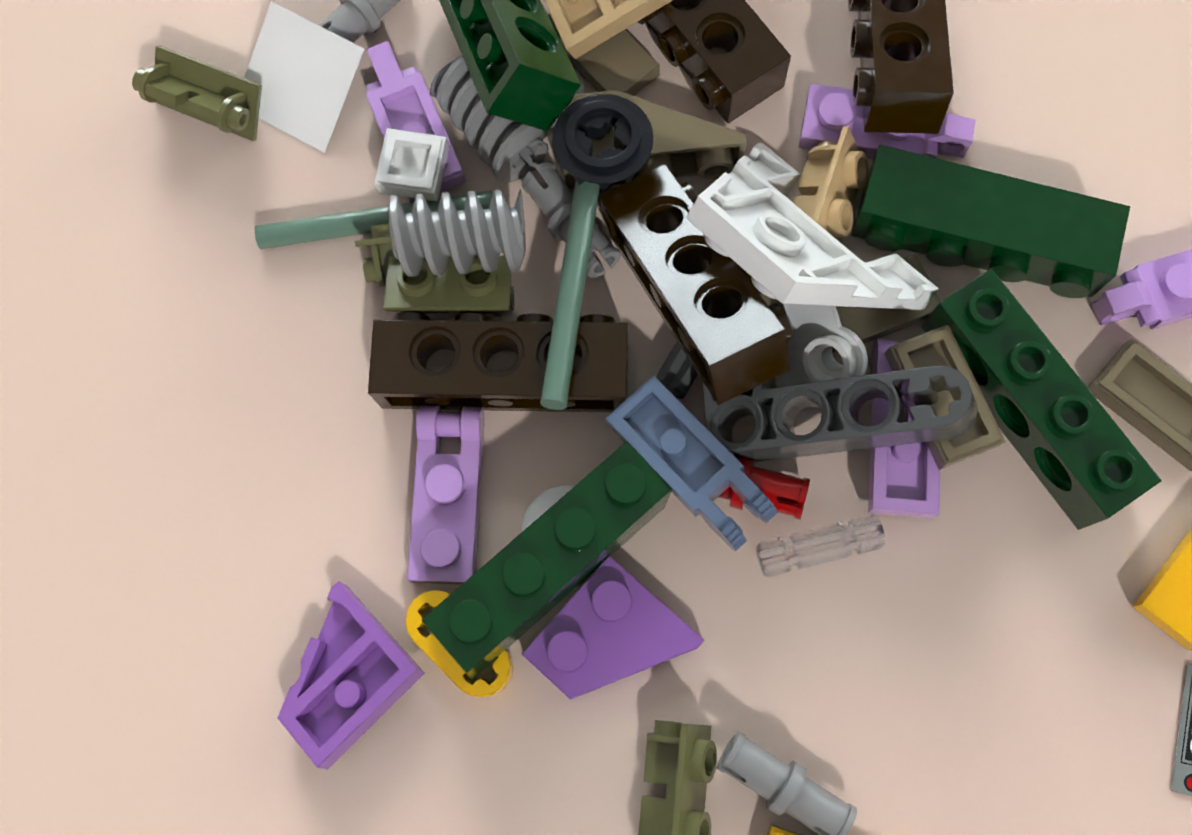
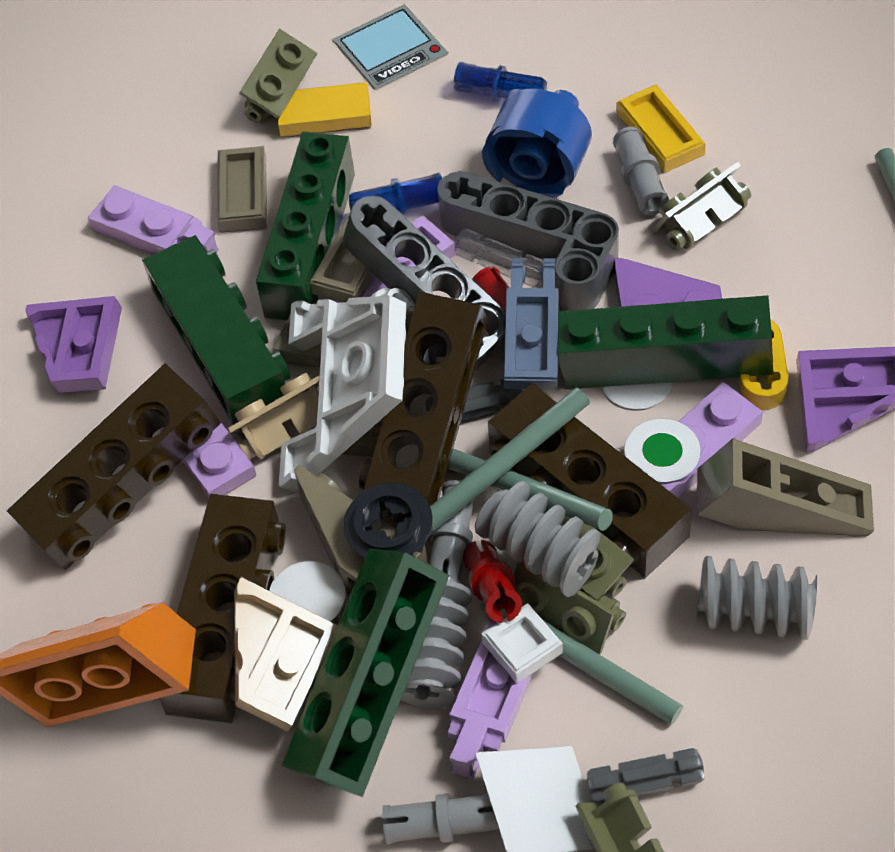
camera: 140 degrees left, 20 degrees down
(240, 167) = (648, 774): none -> dark grey axle
(256, 374) = (757, 597): none -> light grey piece
(315, 496) = (780, 494): none -> dark tan slope
(456, 446) = (663, 449): none -> white sticker
(464, 175) = (492, 581): none -> red pin
(523, 292) = (588, 512): none -> sand green bar
(634, 67) = (312, 588): none -> white sticker
(820, 589) = (538, 225): none -> dark grey beam
(912, 704) = (538, 141): none -> blue brick
(993, 524) = (404, 194): none -> clear blue axle
(1059, 782) = (493, 81): none -> clear blue axle
(1092, 108) = (76, 340): none -> medium lavender wing

